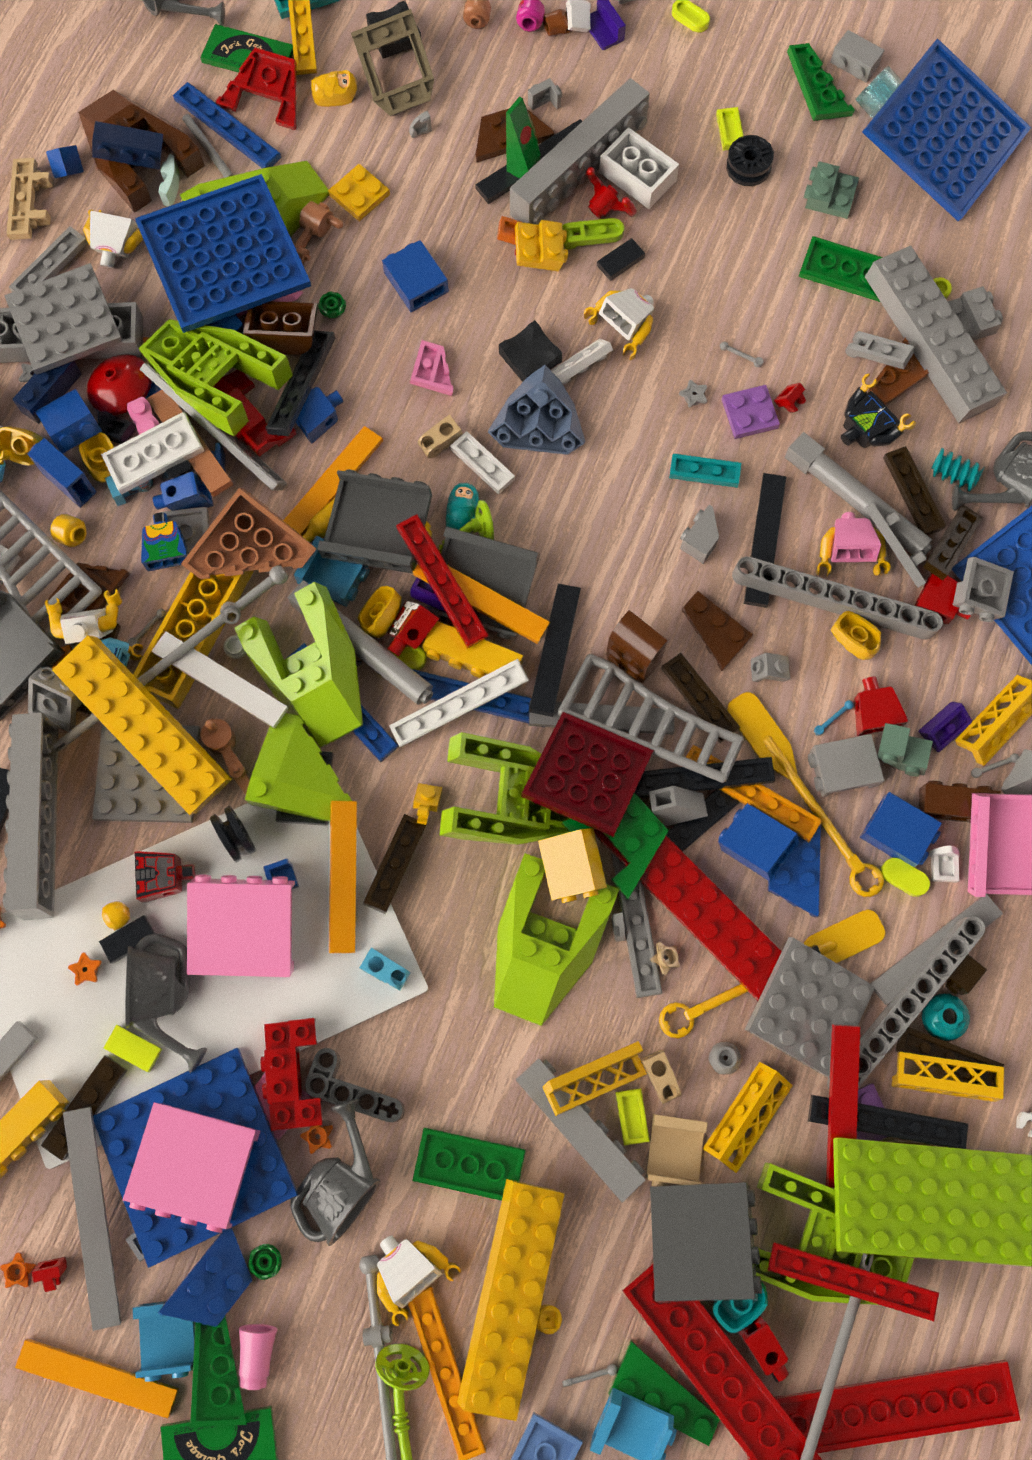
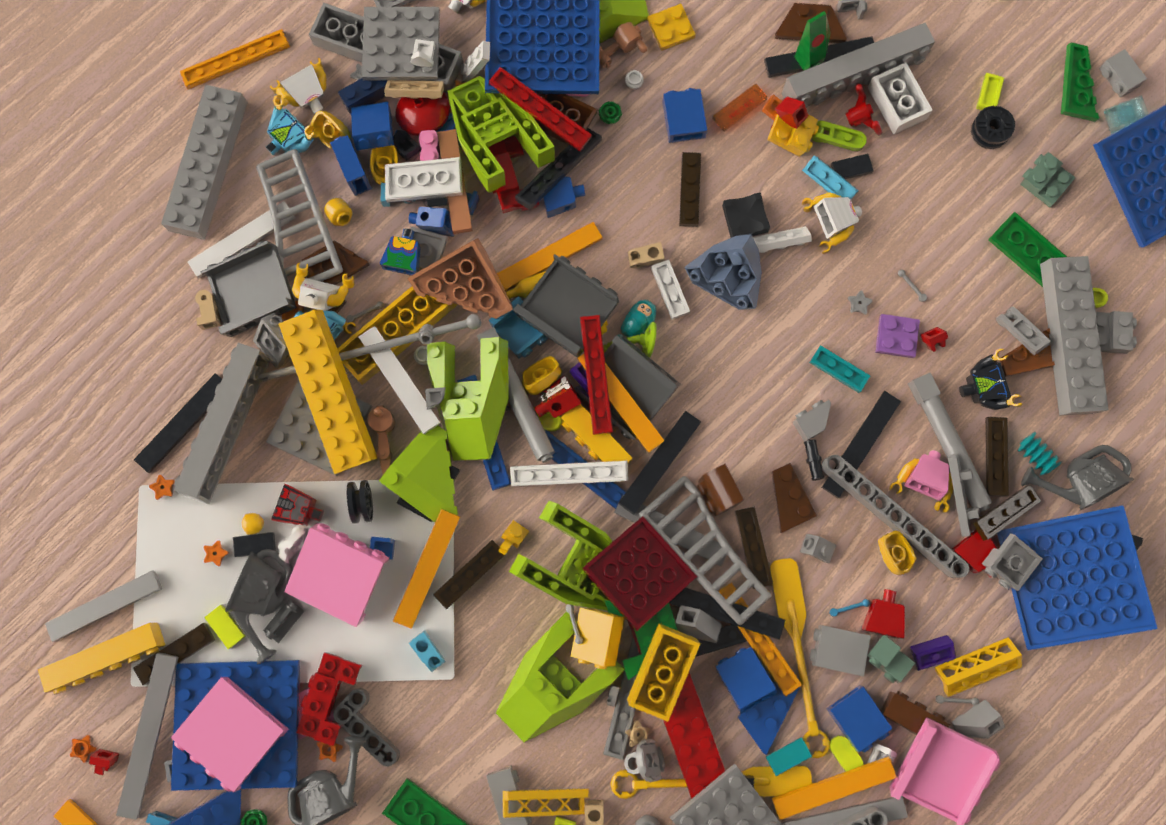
camera: 25 degrees right, 5 degrees up
(94, 317) = (423, 53): none -> white tile
(100, 361) = (414, 89): none -> tan plate
(157, 304) = (476, 61): none -> white plate
(175, 915) = (291, 547): none -> white plate
(200, 1010) = (283, 621): none -> dark grey hinge
(230, 442) = (488, 199): light grey tile -> none
(252, 324) = (540, 109): none -> red tile
(268, 680) = (434, 397): none -> light grey tile
(343, 260) = (634, 79): none -> white plate
(431, 369) = (664, 197): bright pink wing -> none
(456, 350) = (690, 189): none -> dark brown plate
(471, 245) = (739, 107): none -> clear orange tile
(527, 848) = (570, 608): none -> light grey hinge
(531, 222) = (792, 112): none -> red brick
(600, 279) = (828, 178): none -> medium azure tile
(664, 868) = (663, 672): none -> yellow brick
(692, 979) = (648, 759): none -> light grey tile
(722, 576) = (814, 460): none -> black pin
(843, 905) = (788, 756): none -> teal tile
(908, 918) = (834, 788): none -> light orange tile

